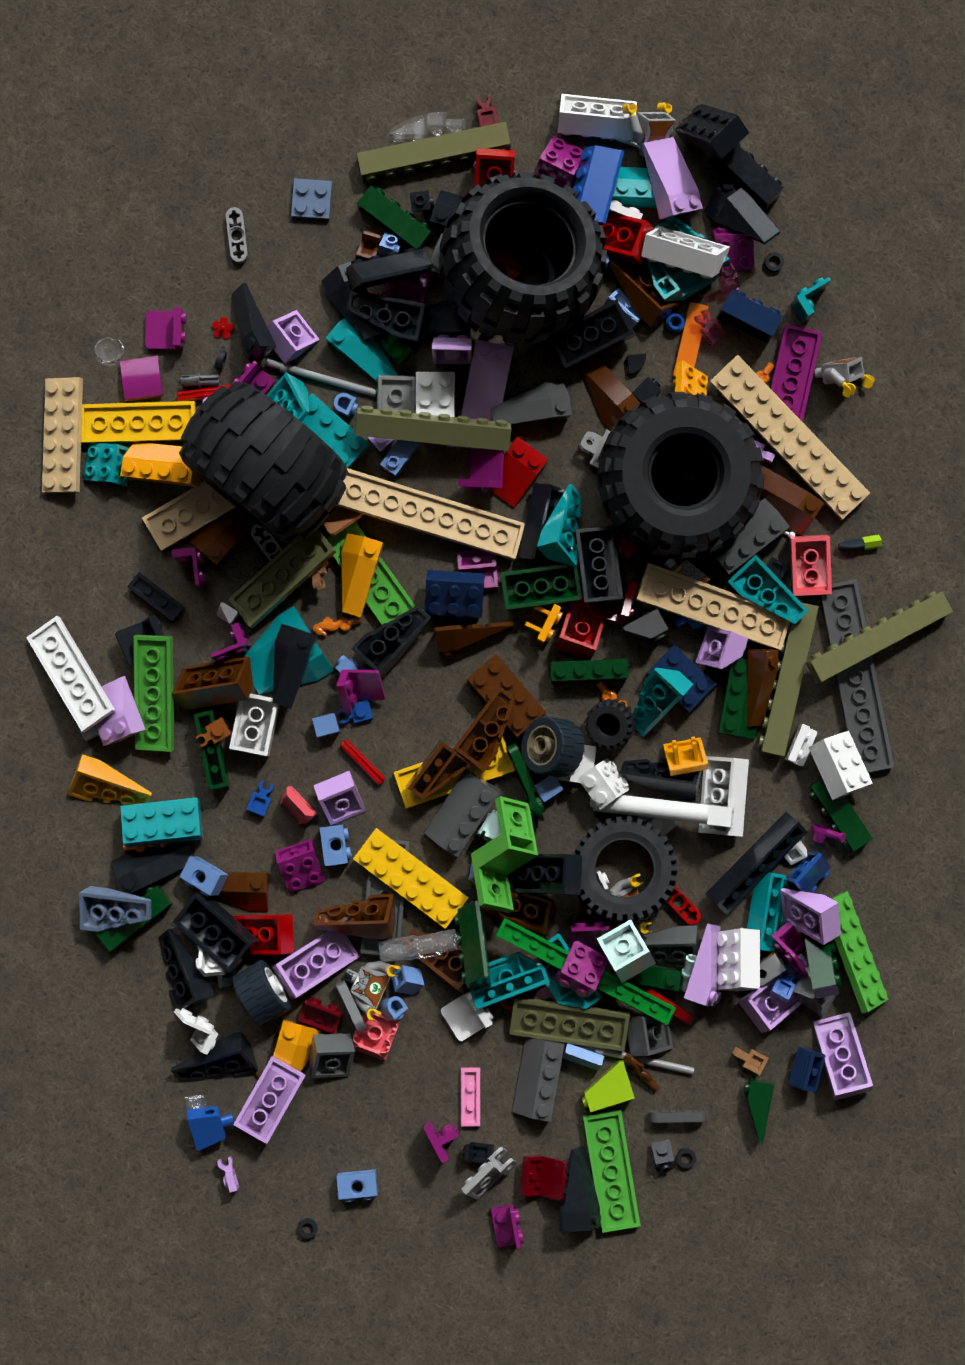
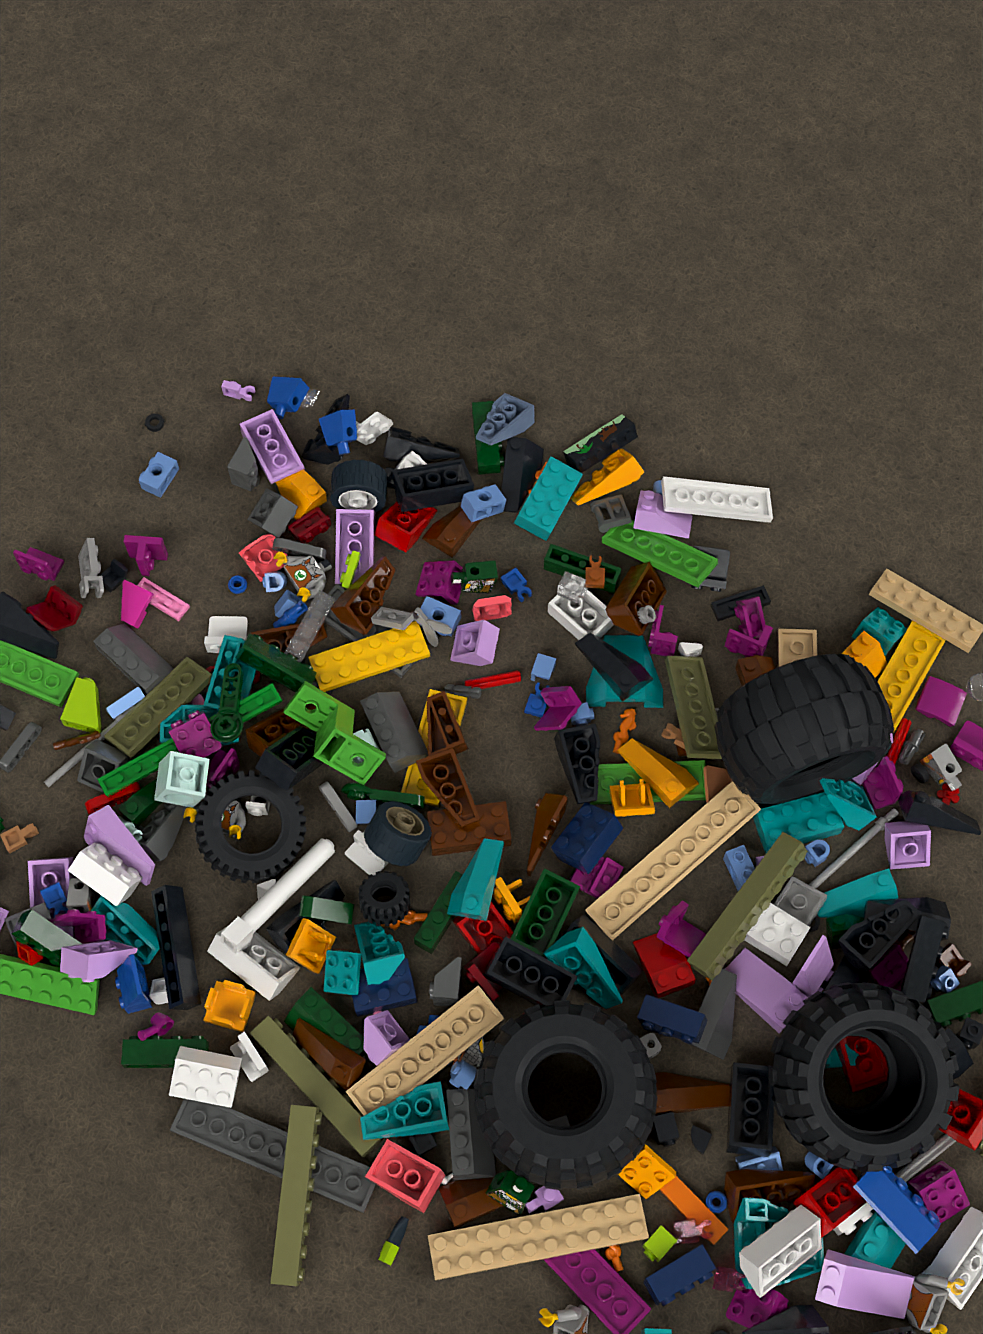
camera: 120 degrees right, 20 degrees down
(77, 811) = (600, 444): none -> black brick
(136, 755) = (616, 510): none -> dark grey plate
(168, 578) = (750, 616): none -> magenta bracket
(204, 344) = (943, 767): none -> light grey torso
(219, 1046) = (339, 429): none -> blue torso
(228, 663) = (646, 614): none -> light grey bush
(242, 742) = (572, 587): none -> clear brick
(276, 830) = (476, 577): none -> dark green torso
(304, 1110) = (243, 467): none -> dark grey slope
(334, 951) = (352, 561): none -> lime plate
(351, 845) = (430, 626): none -> light grey piece
(366, 879) = (392, 618): none -> light grey plate
(389, 779) = (465, 691): none -> dark grey axle
(400, 576) = (632, 799): none -> light orange plate
(415, 1046) = (234, 580): none -> blue plate
(418, 970) = (290, 615): none -> blue pin
(491, 1115) = (134, 603): none -> dark pink slope
(542, 955) = (229, 707): none -> dark green beam
(556, 816) = (336, 804): none -> light grey beam
(558, 653) = (475, 888): none -> teal wedge
(565, 433) = (671, 1020): none -> dark blue wedge
(604, 783) = (336, 861): white bracket -> none
(650, 762) = (326, 910): none -> dark green beam
(692, 714) = (342, 972): none -> teal bracket
(692, 908) = (185, 857): red beam -> none
(710, 568) = (462, 1074): none -> medium blue plate
(735, 345) = (659, 1244): none -> lime brick
(772, 789) = (229, 1005): none -> light orange panel
(773, 472) = (511, 1192): none -> dark green torso
(843, 970) = (28, 954): none -> red slope

